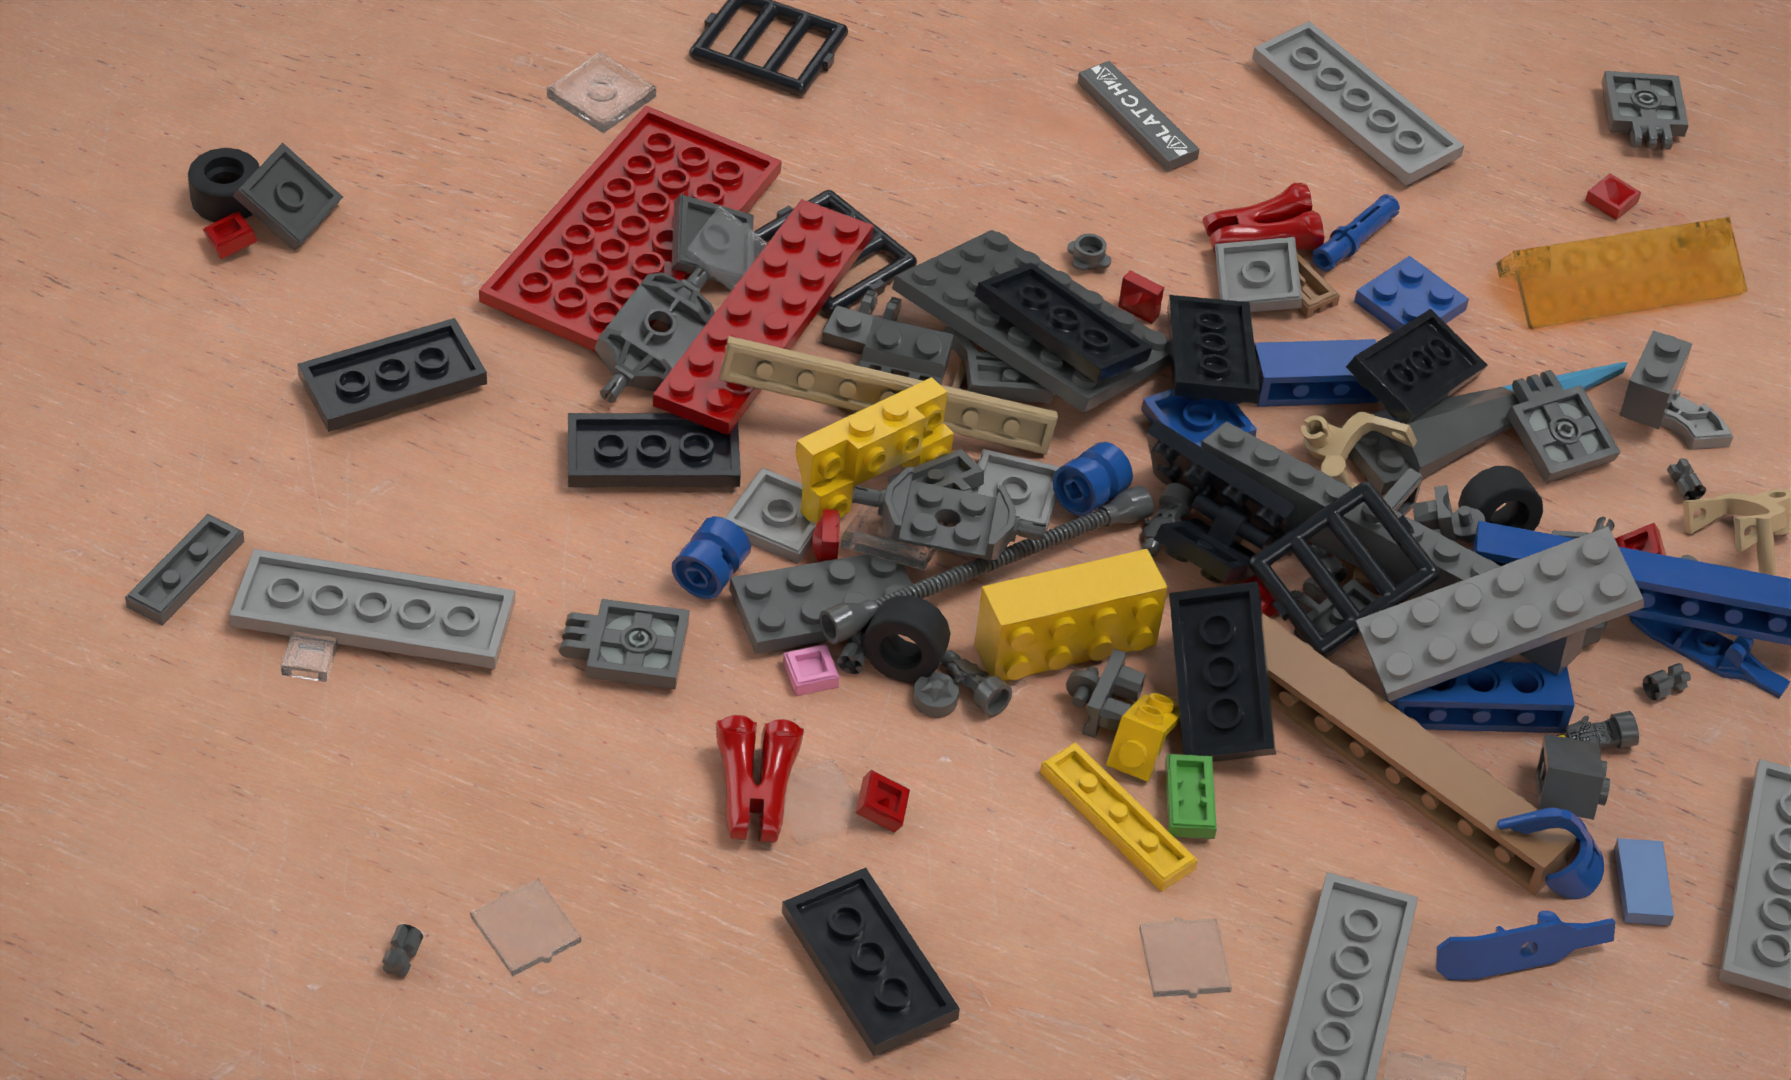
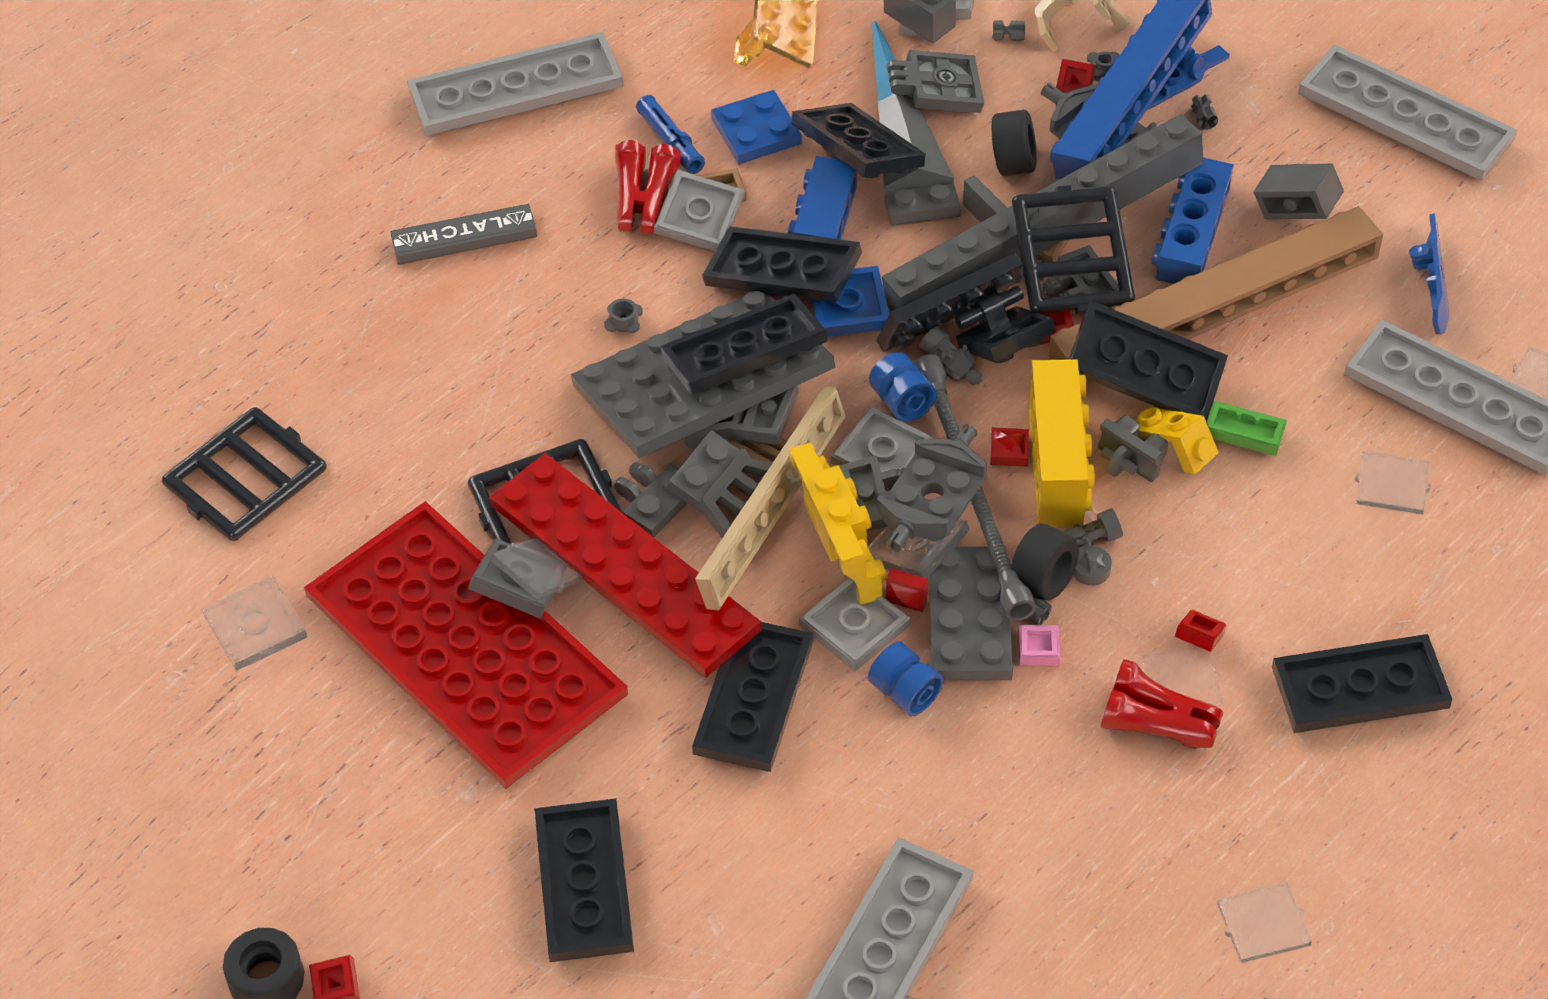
camera: 65 degrees left, 5 degrees up
(288, 196) = (310, 914): dark grey tile -> none
(628, 642) = (978, 765): dark grey piece -> none
(636, 351) = (633, 672): dark grey plate -> none
(1118, 816) = (1246, 482): yellow tile -> none
(1141, 297) = (696, 295): red tile -> none
(1335, 443) = (915, 223): tan piece -> none
(1439, 517) = (1031, 172): dark grey hips -> none
(1499, 613) = (1169, 166): light grey plate -> none
(1585, 871) = (1354, 205): blue helmet -> none
(1616, 731) = (1245, 174): dark grey piece -> none
(1643, 882) = (1385, 190): medium blue tile -> none

